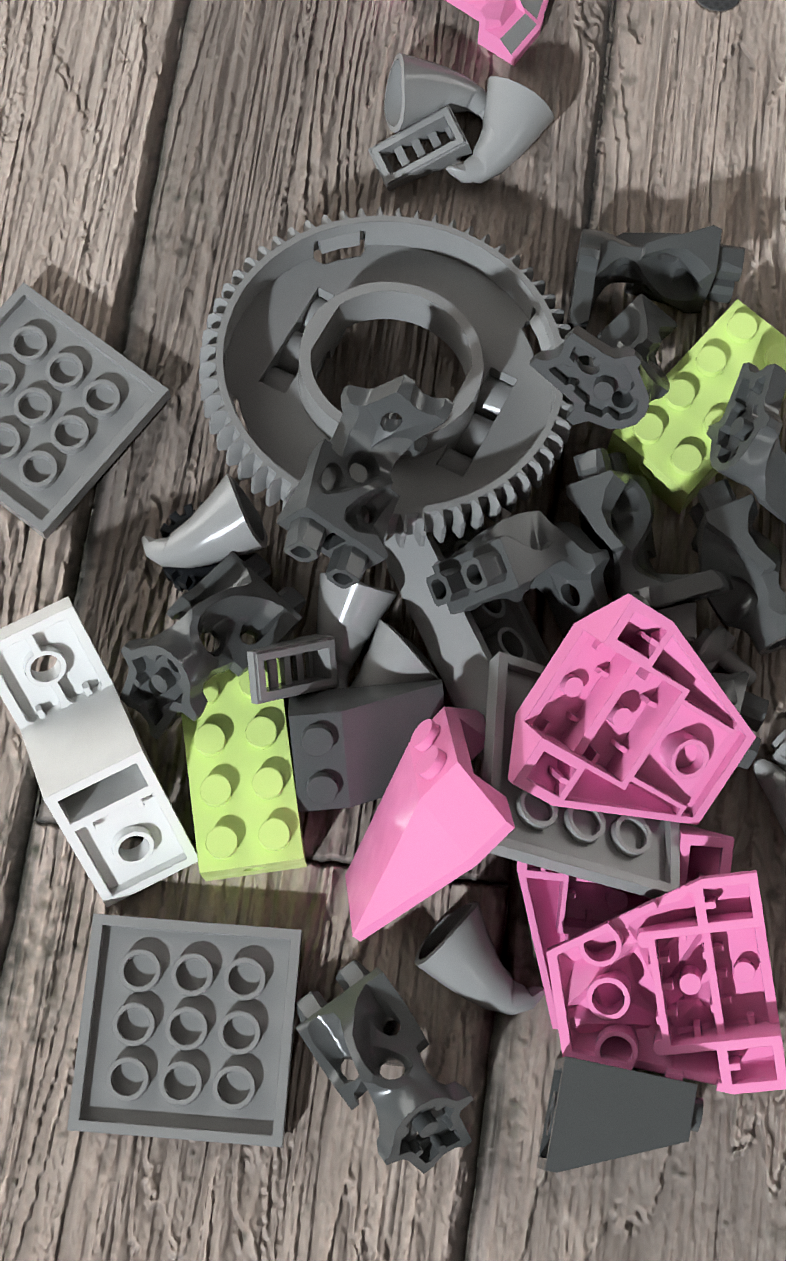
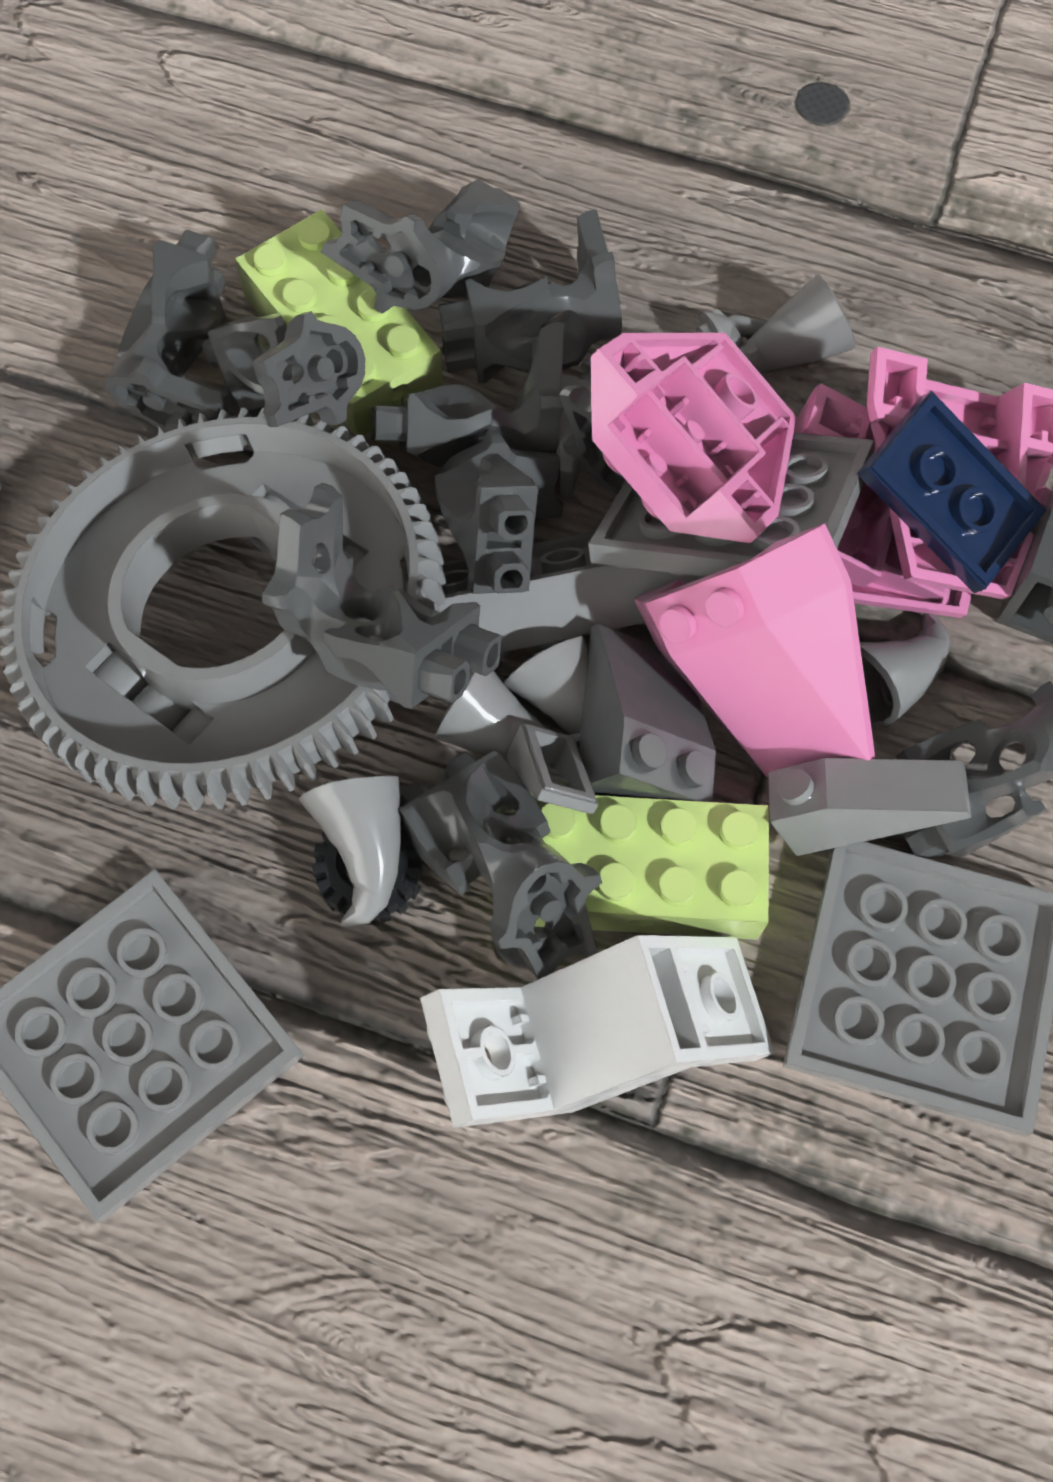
camera: 80 degrees left, 5 degrees down
(324, 940) = (862, 800): none -> light grey slope
(637, 975) = (952, 492): none -> dark blue tile

